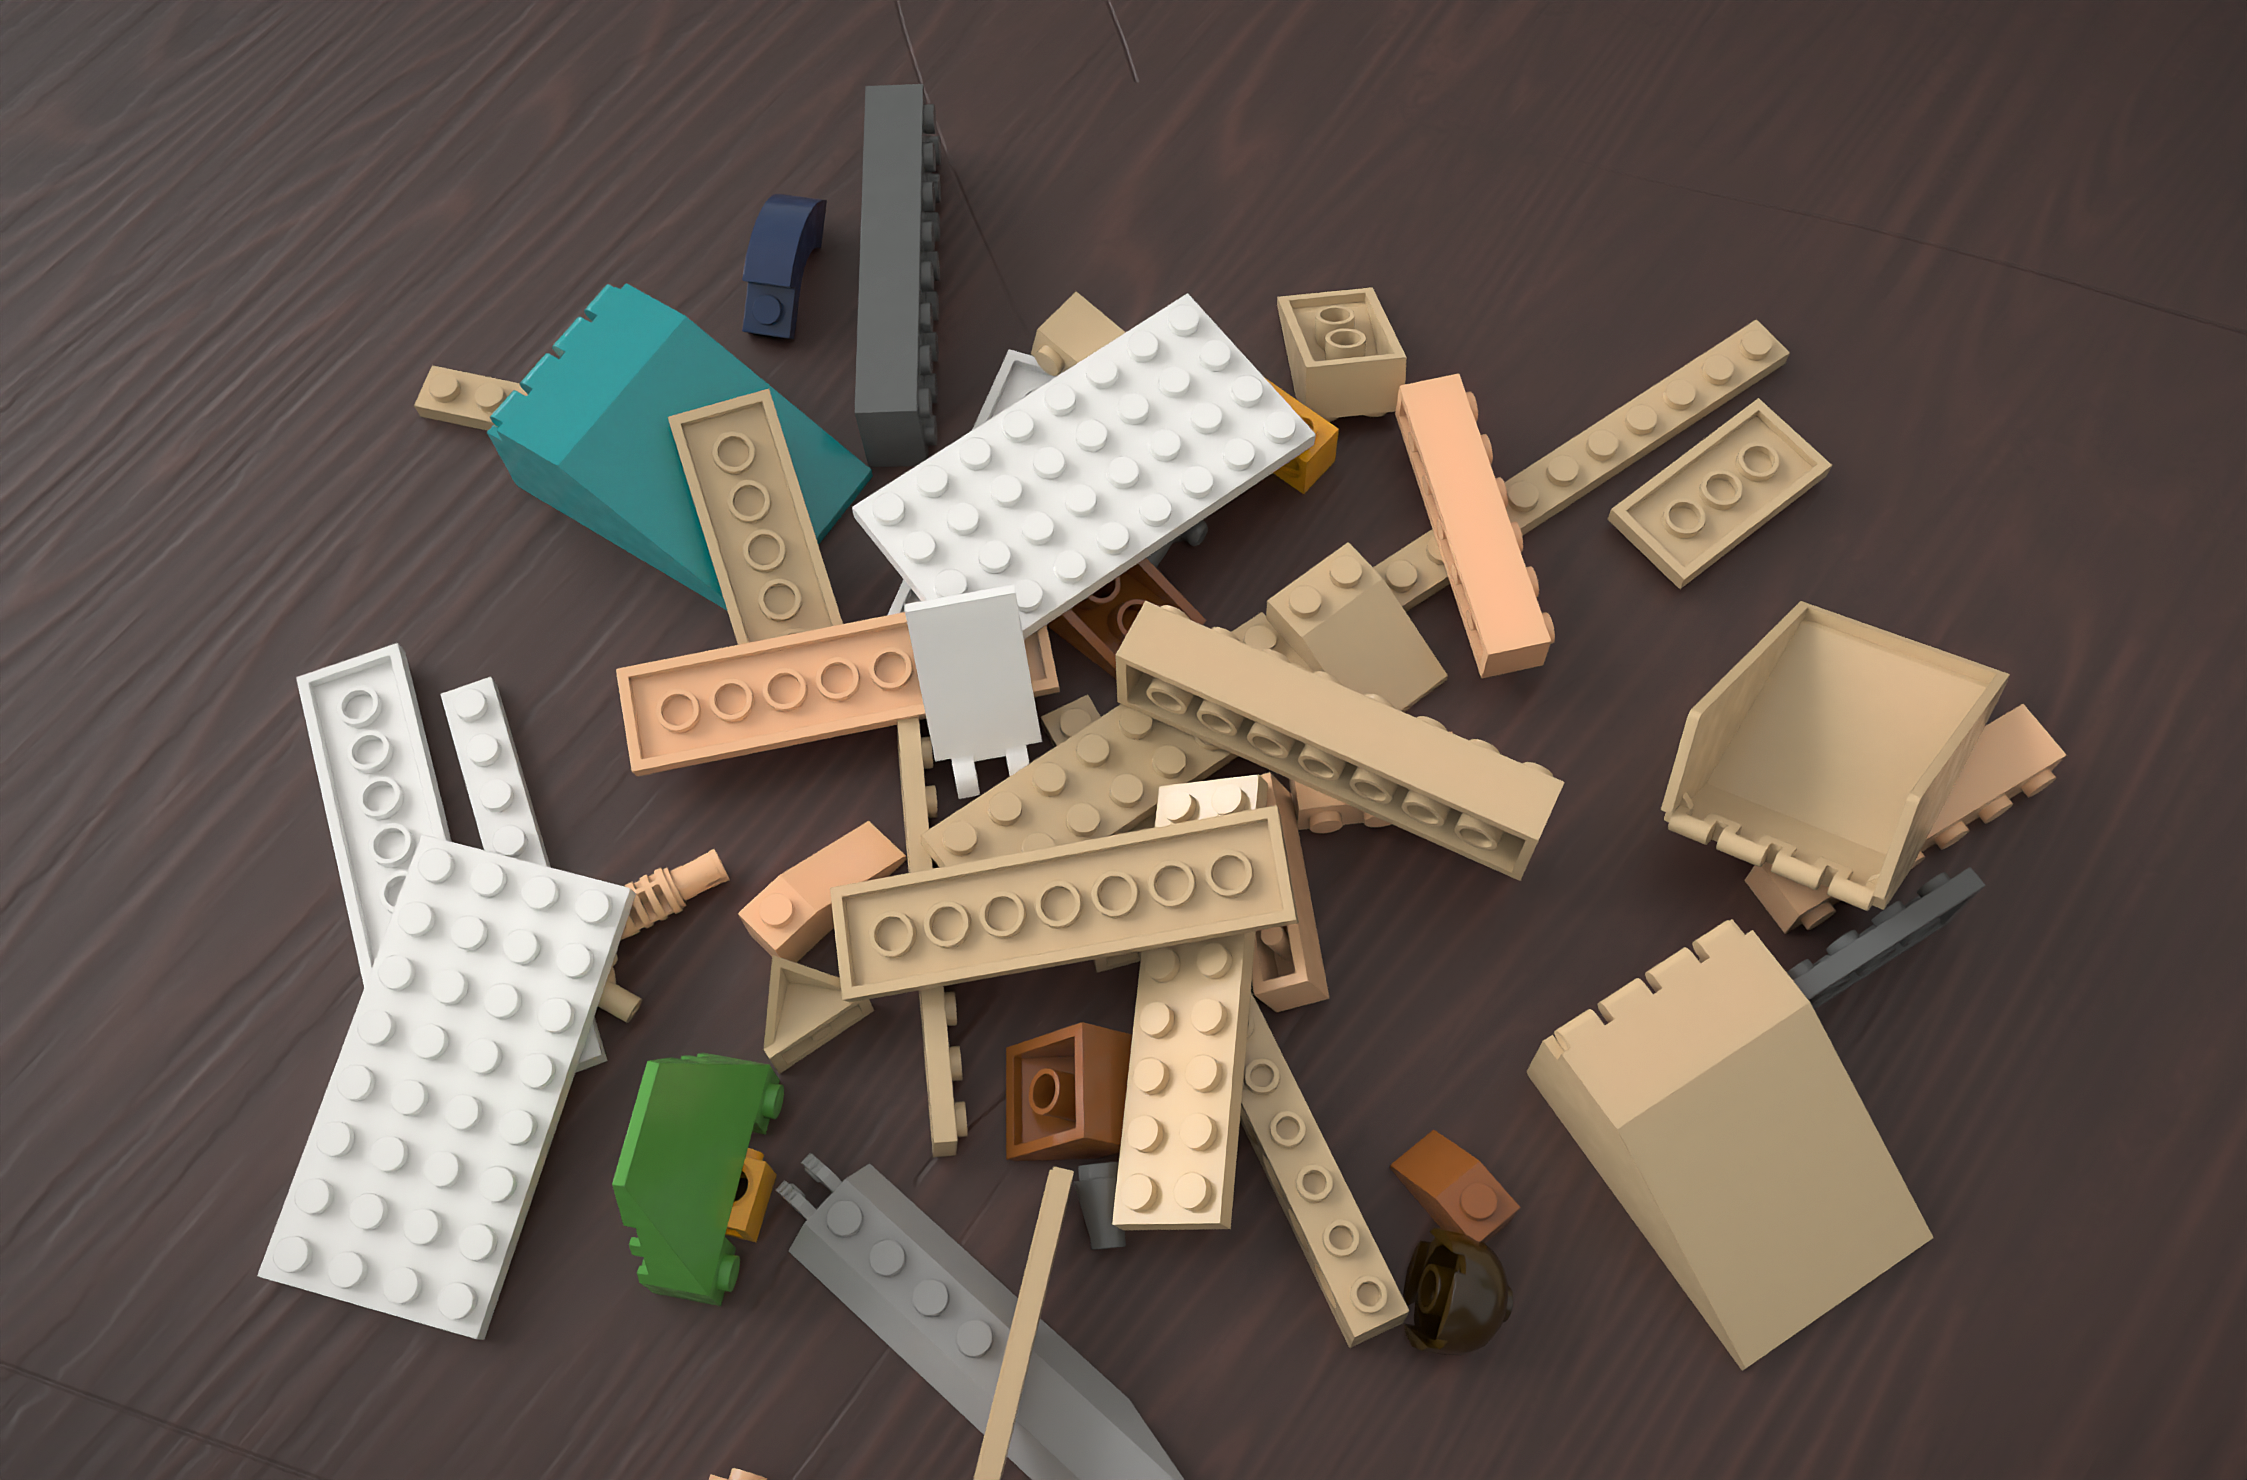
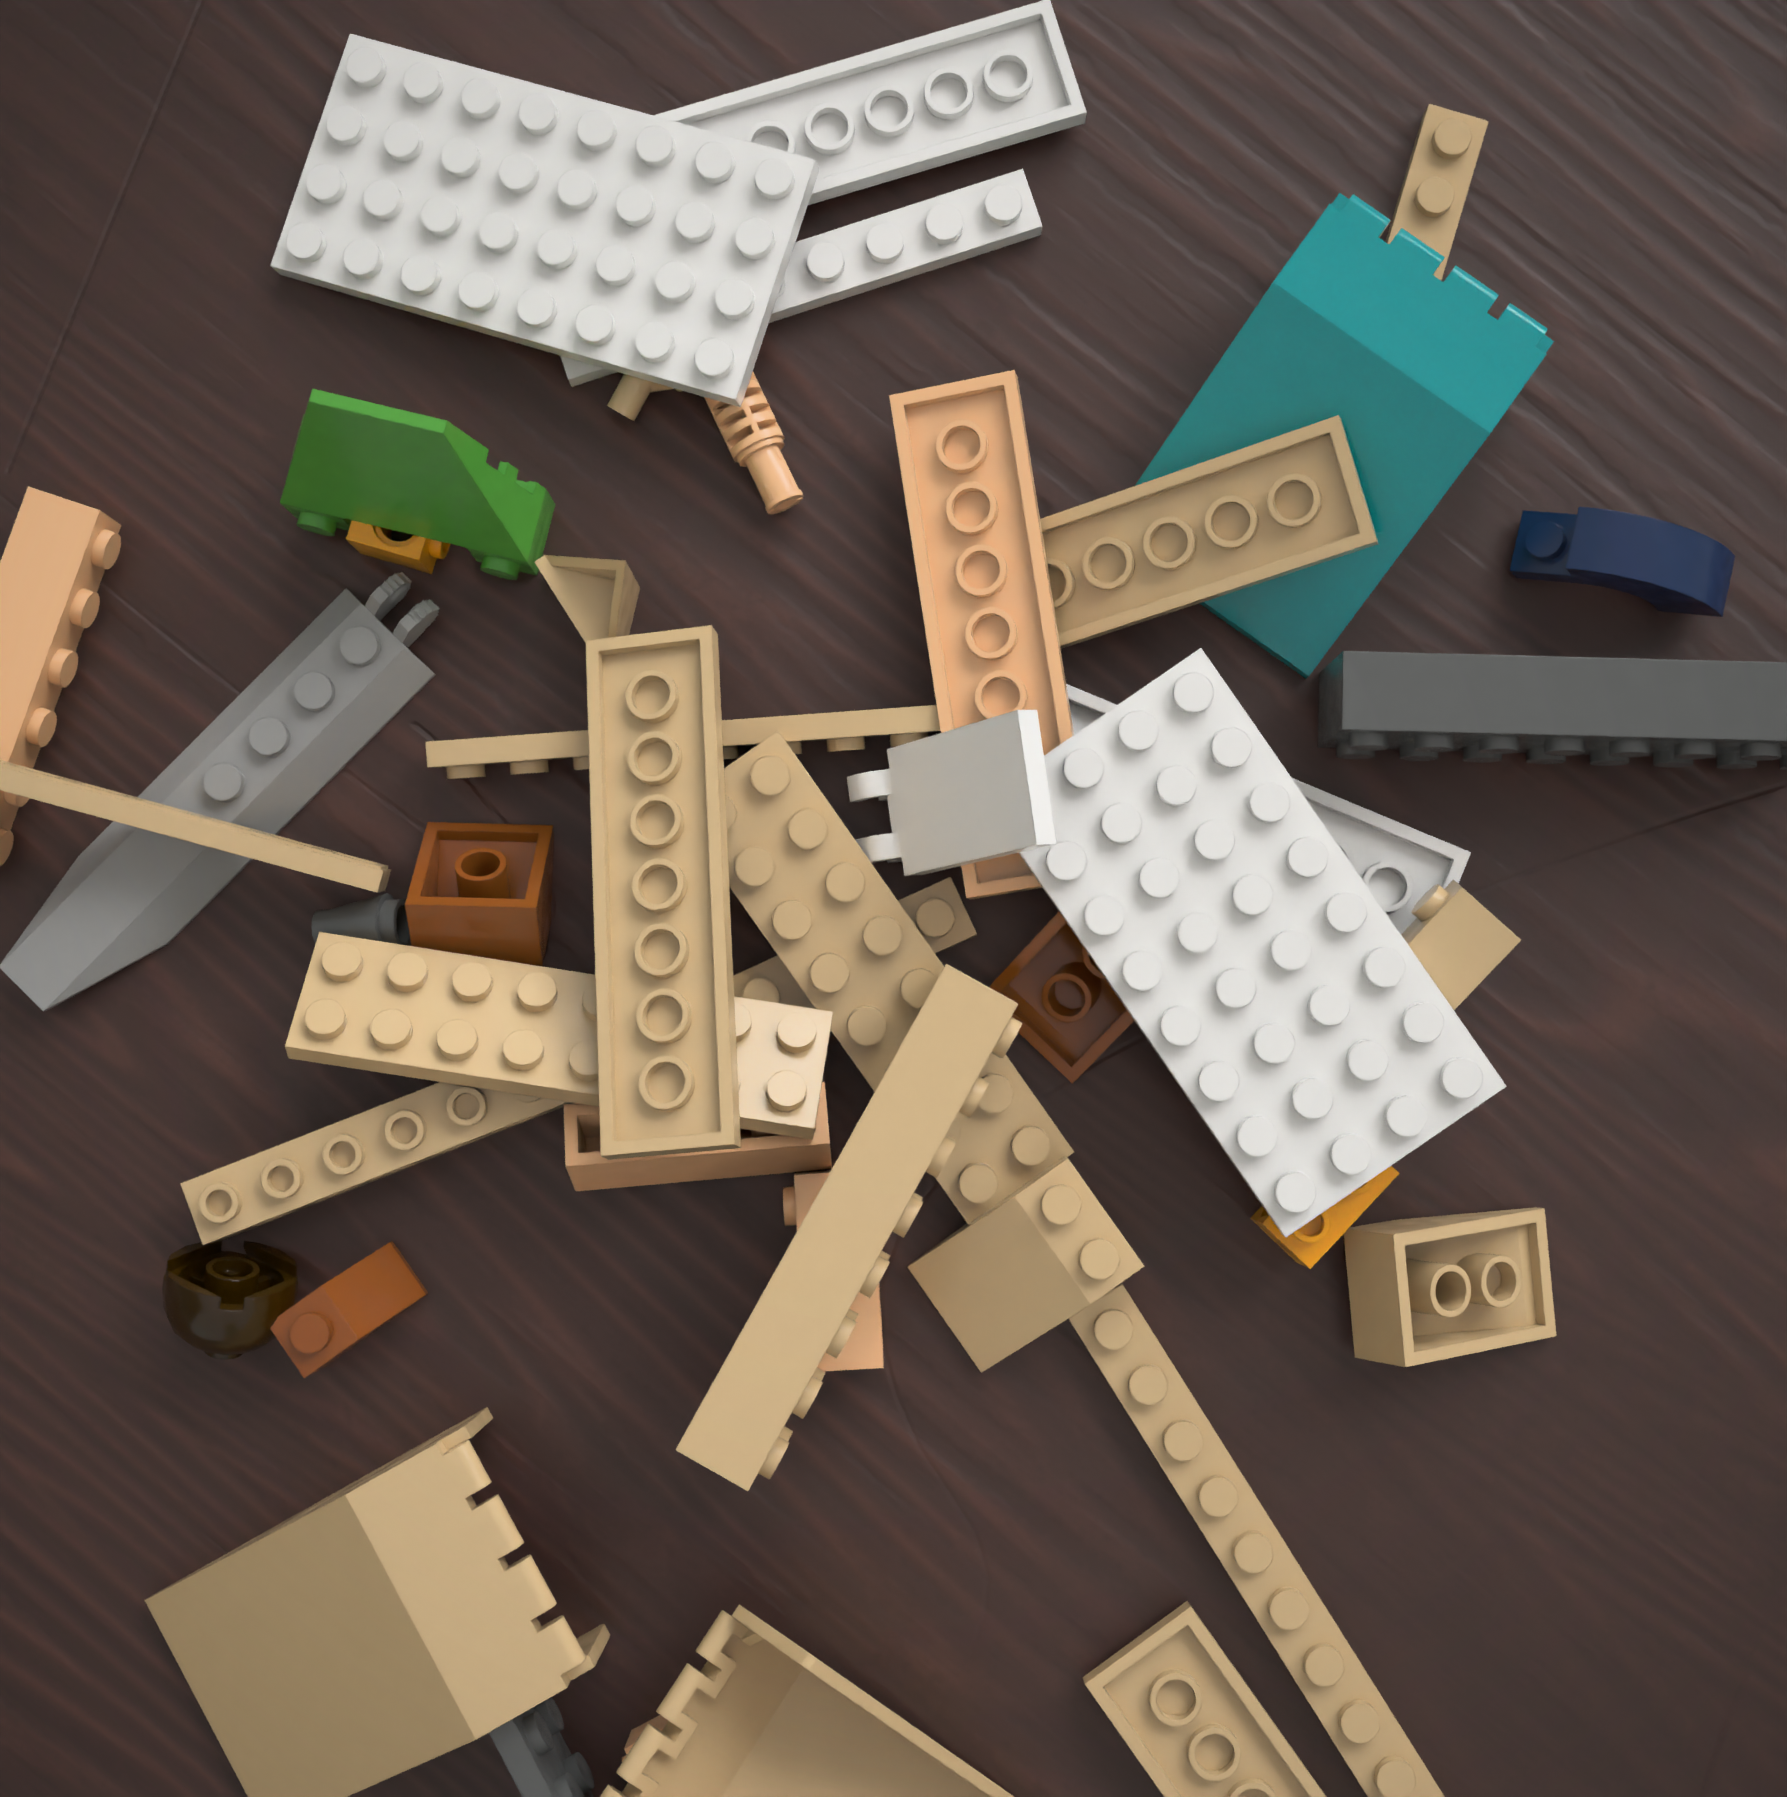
camera: 90 degrees right, 20 degrees up
(797, 905) = (745, 618): light nougat slope -> none
(1473, 527) = (1168, 1425): light nougat brick -> none

